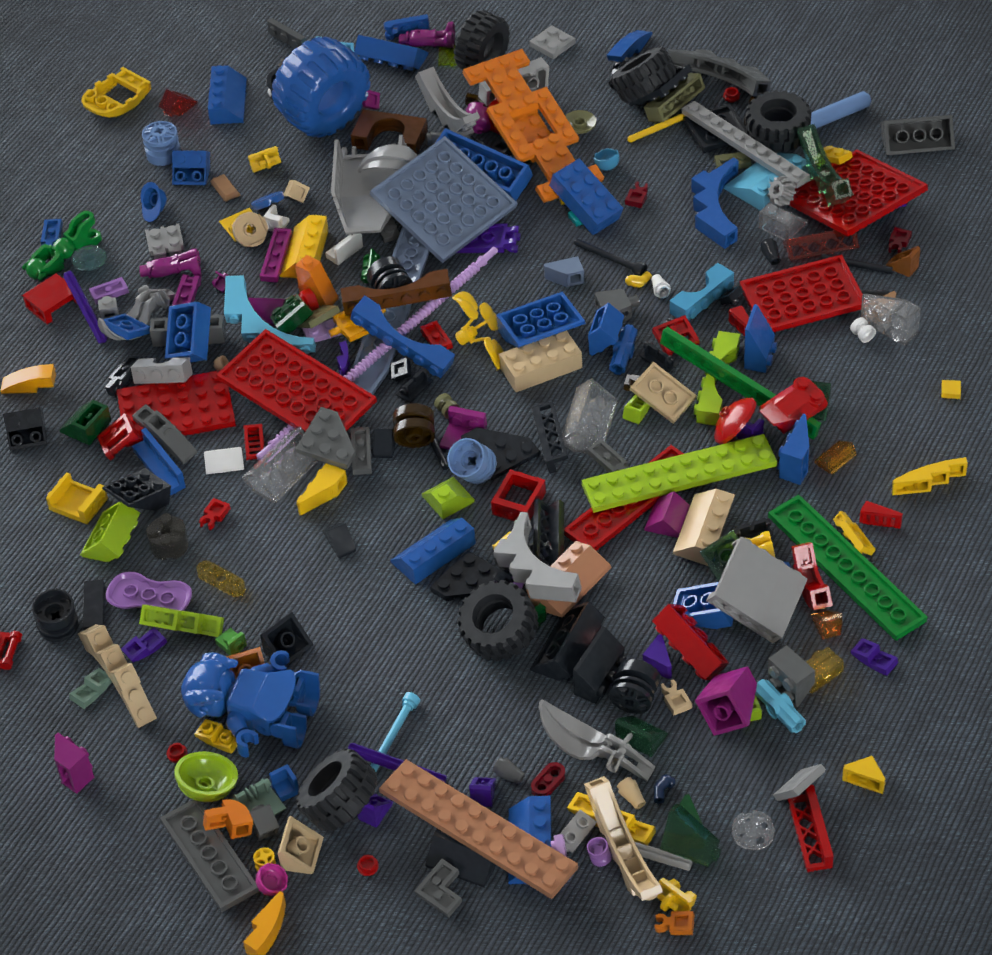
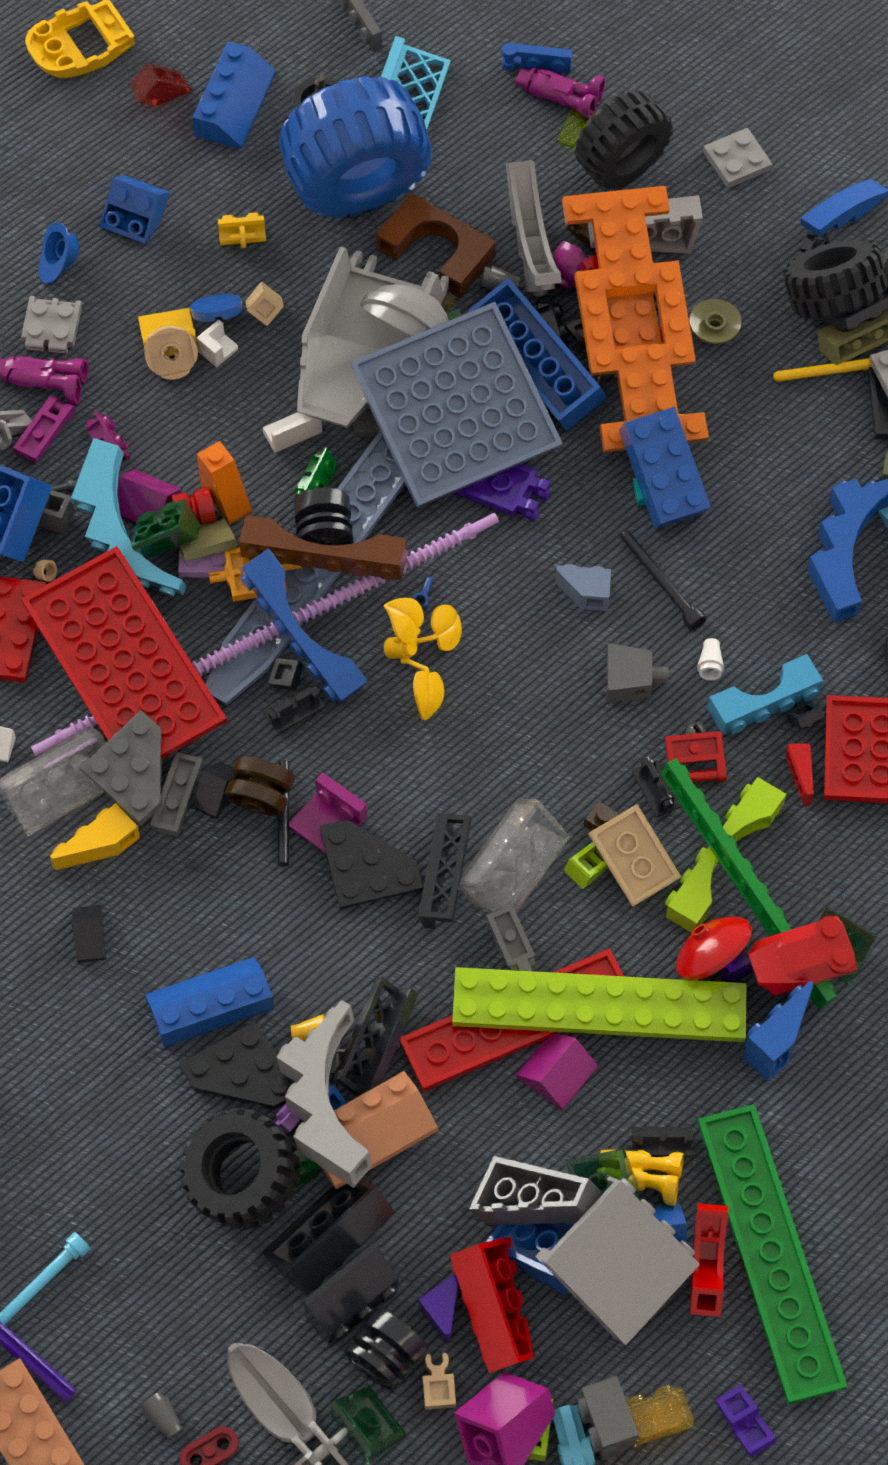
camera: 15 degrees right, 15 degrees up
(159, 142) = (106, 151): medium blue wheel -> none
(224, 188) = (170, 259): medium nougat tile -> none
(253, 430) = (40, 701): red slope -> none
(275, 255) = (192, 406): magenta plate -> none
(307, 239) = (239, 407): yellow slope -> none
(343, 360) = (212, 633): dark purple slope -> none
(372, 100) = (434, 178): magenta panel -> none
(389, 52) = (494, 98): blue slope -> none
(435, 335) = (358, 633): red plate -> none
(443, 403) = (324, 760): olive wheel -> none
(448, 497) = (266, 917): lime slope -> none
(462, 461) = (314, 879): medium blue wheel -> none
(483, 790) = (115, 1431): dark purple slope -> none
(504, 508) = (340, 976): red window -> none
(538, 320) = (509, 667): blue slope -> none
(540, 361) = (486, 732): tan brick -> none
(604, 328) = (595, 715): blue slope -> none
(607, 159) = (727, 403): dark azure hair -> none
(623, 349) = (612, 754): blue piece -> none
(637, 196) = (742, 486): dark red plate -> none
(638, 281) = (683, 637): yellow arm -> none
(688, 574) = (531, 1195): none -> dark grey wedge
(703, 523) = (597, 1105): tan slope -> none
(758, 342) = (805, 821): blue slope -> none
(828, 623) = (703, 1338): clear orange slope -> none
(836, 456) = (838, 1053): clear orange slope -> none
(854, 533) = (805, 1201): yellow hinge -> none
(880, 516) = (852, 1182): red slope -> none

